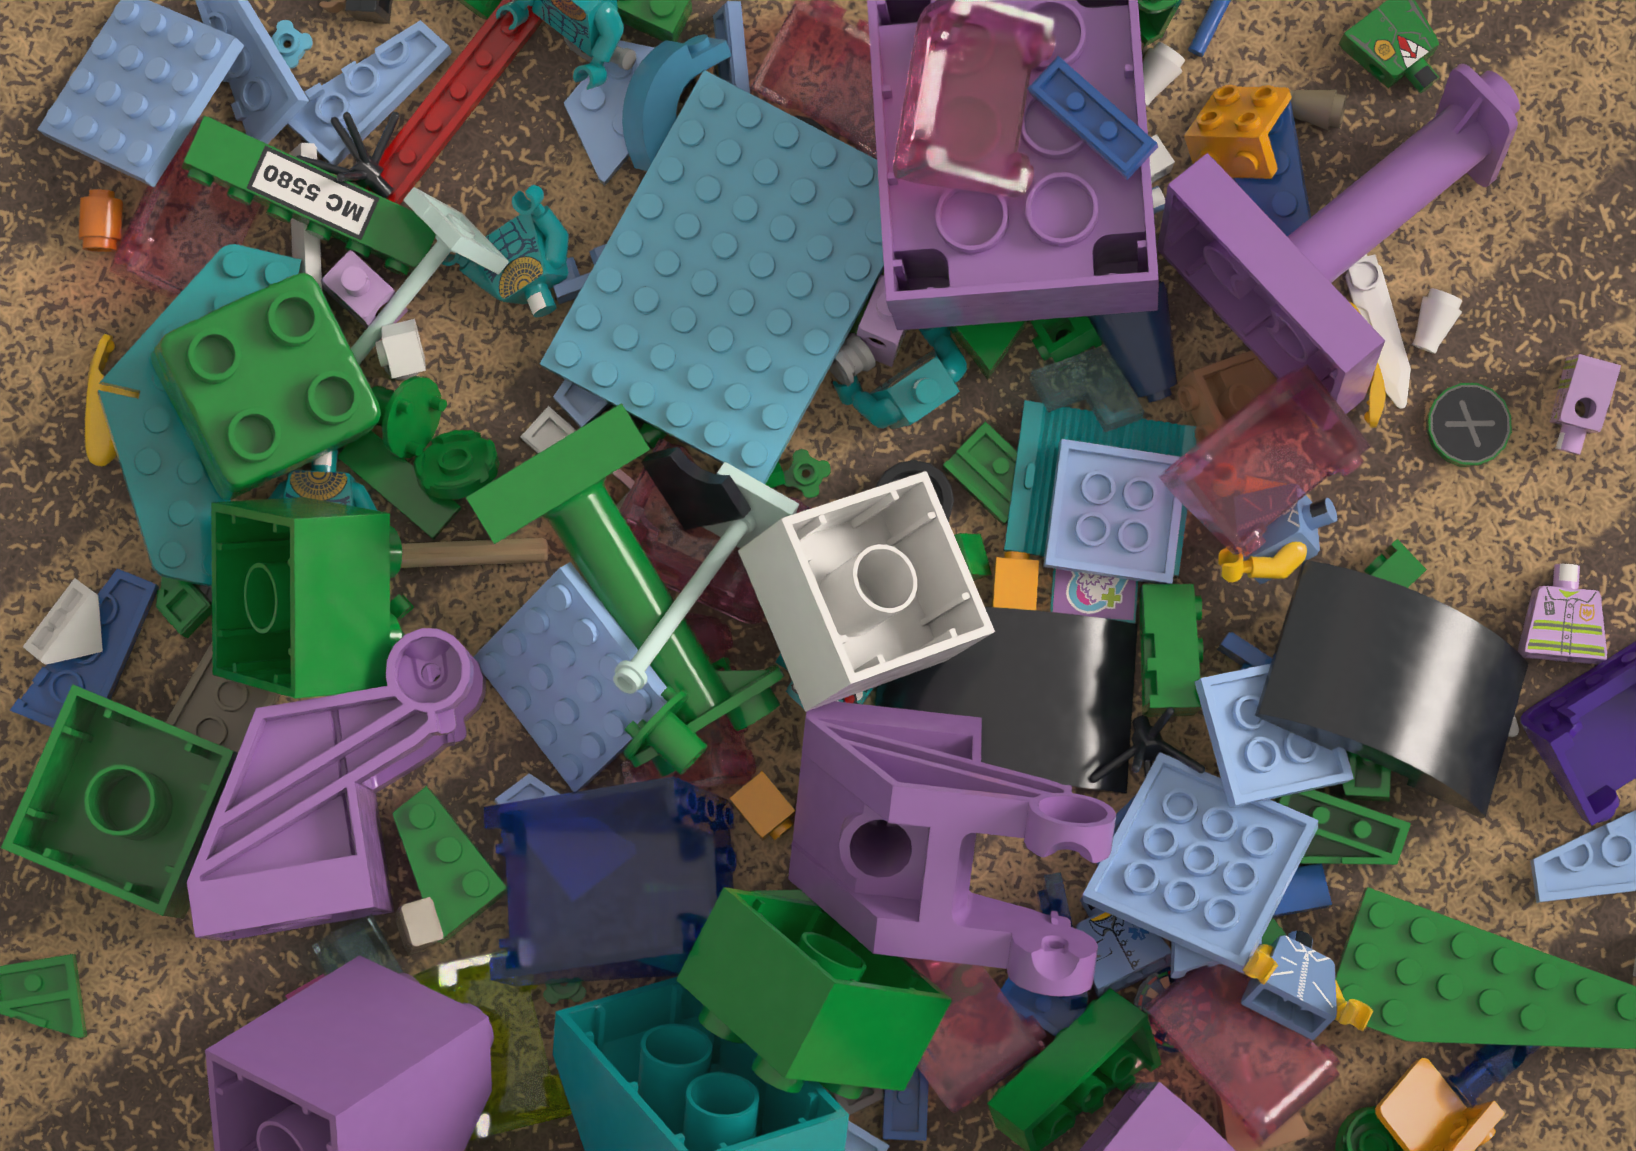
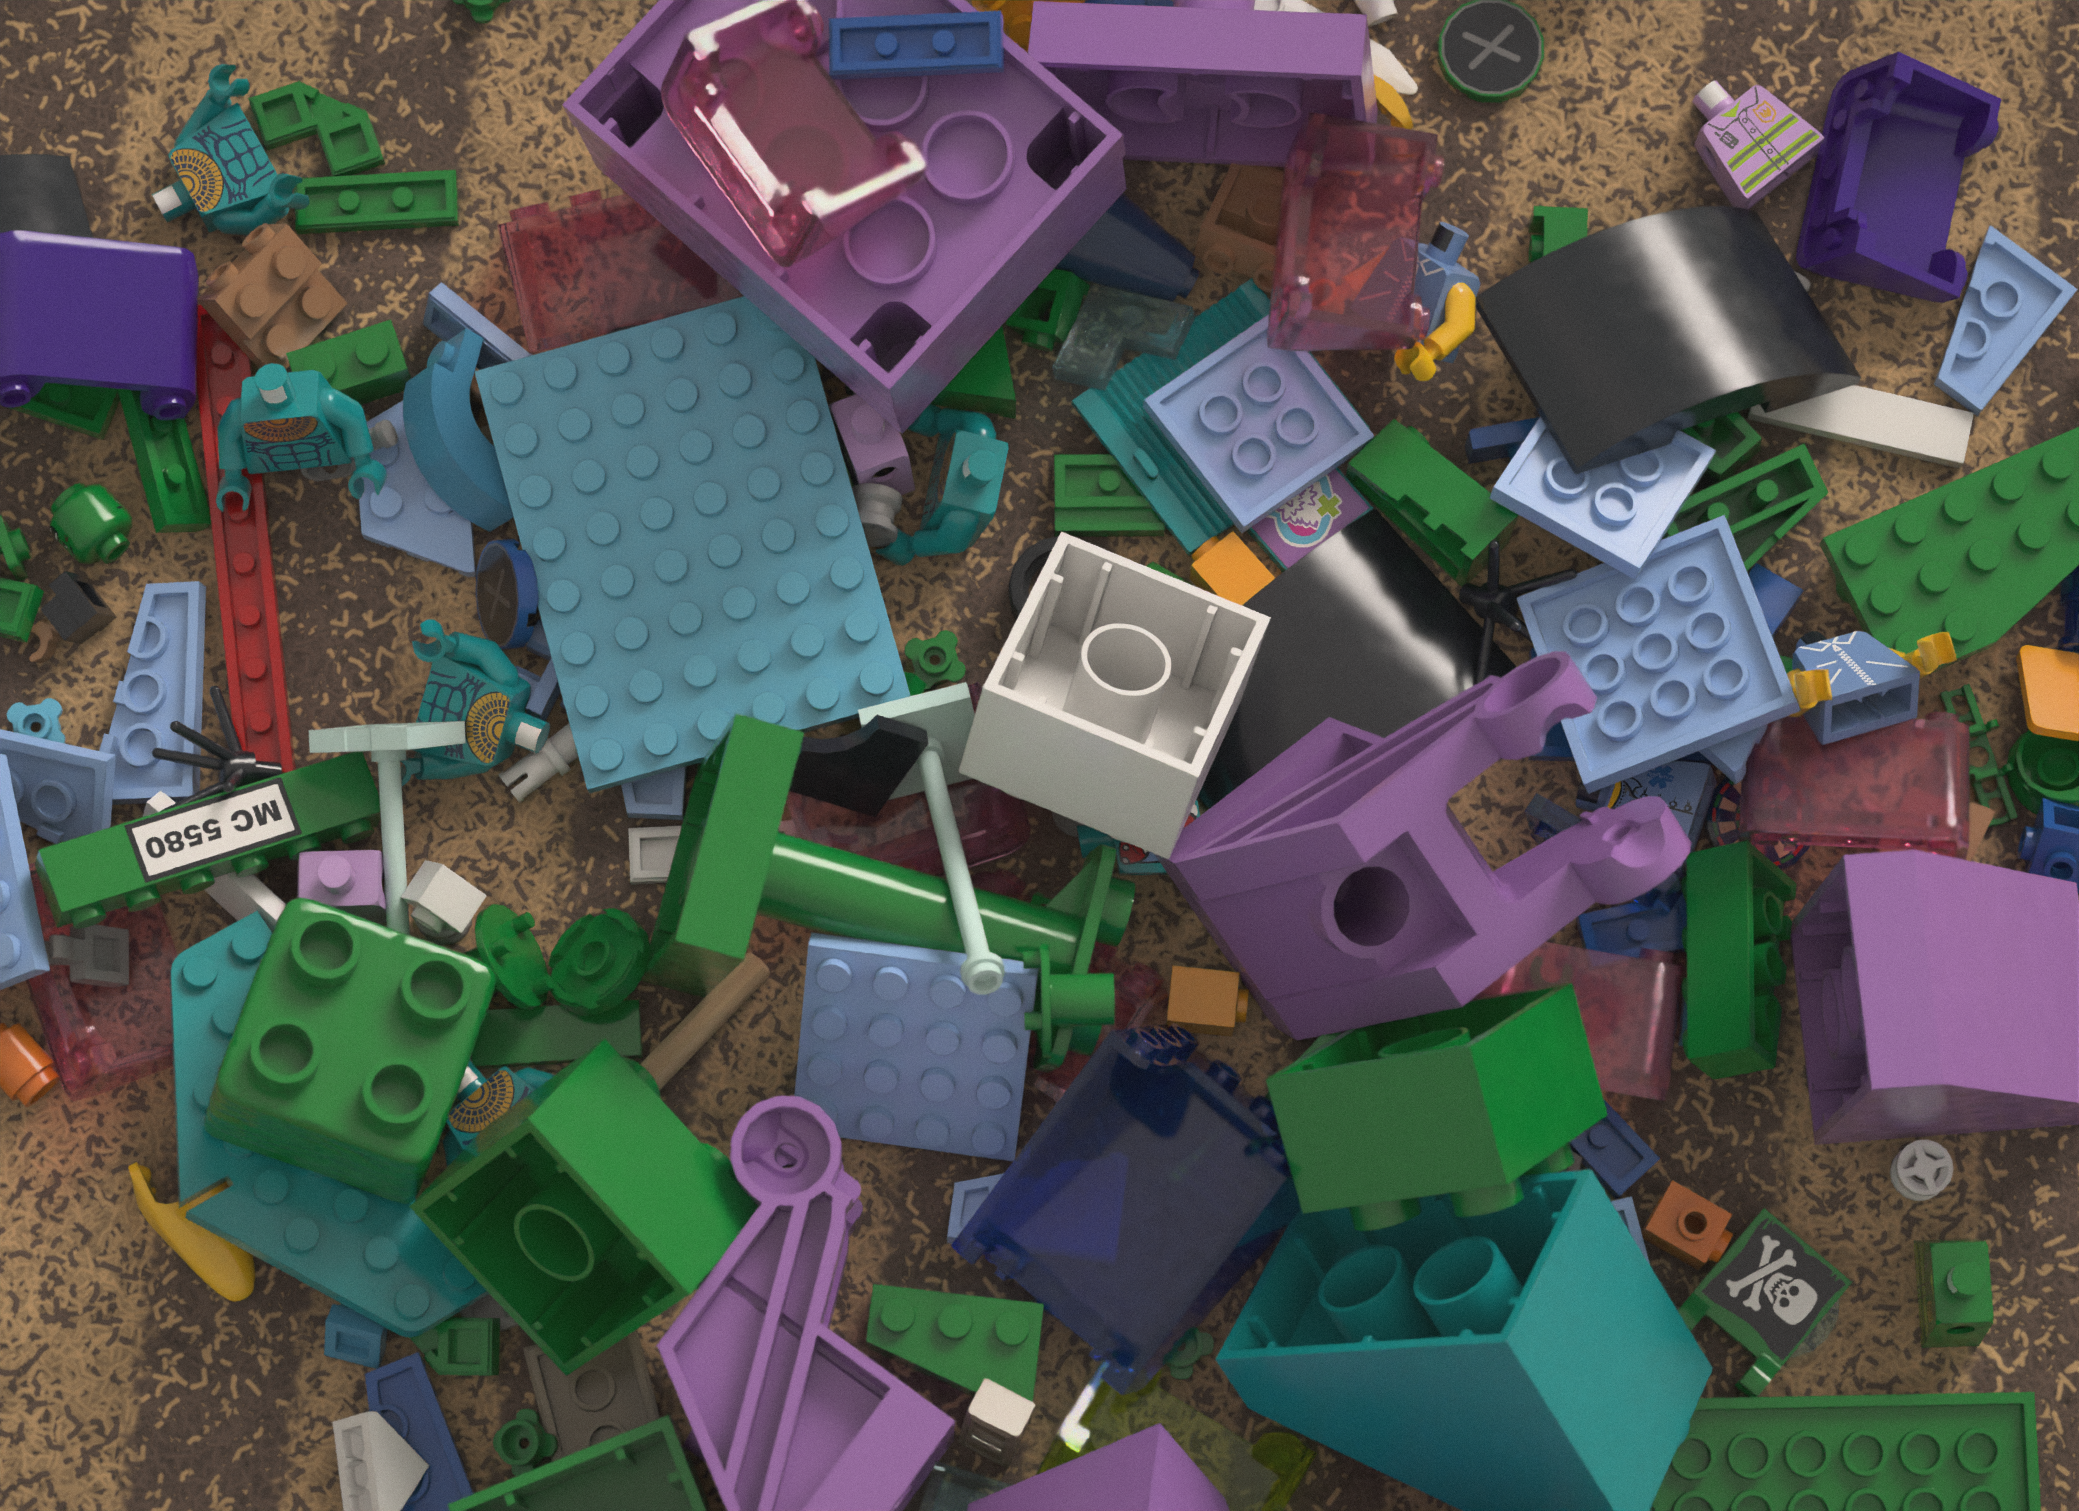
camera: 45 degrees left, 5 degrees down
(130, 544) = (354, 1337): none -> dark azure tile
(154, 686) = (509, 1438): none -> green plate
(192, 201) = (95, 955): none -> light grey plate
(542, 327) = (541, 766): none -> white pin
(604, 212) = (506, 593): none -> tile
(1338, 1108) = (1990, 770): none -> green piece
(1478, 856) = (1879, 422): none -> white tile

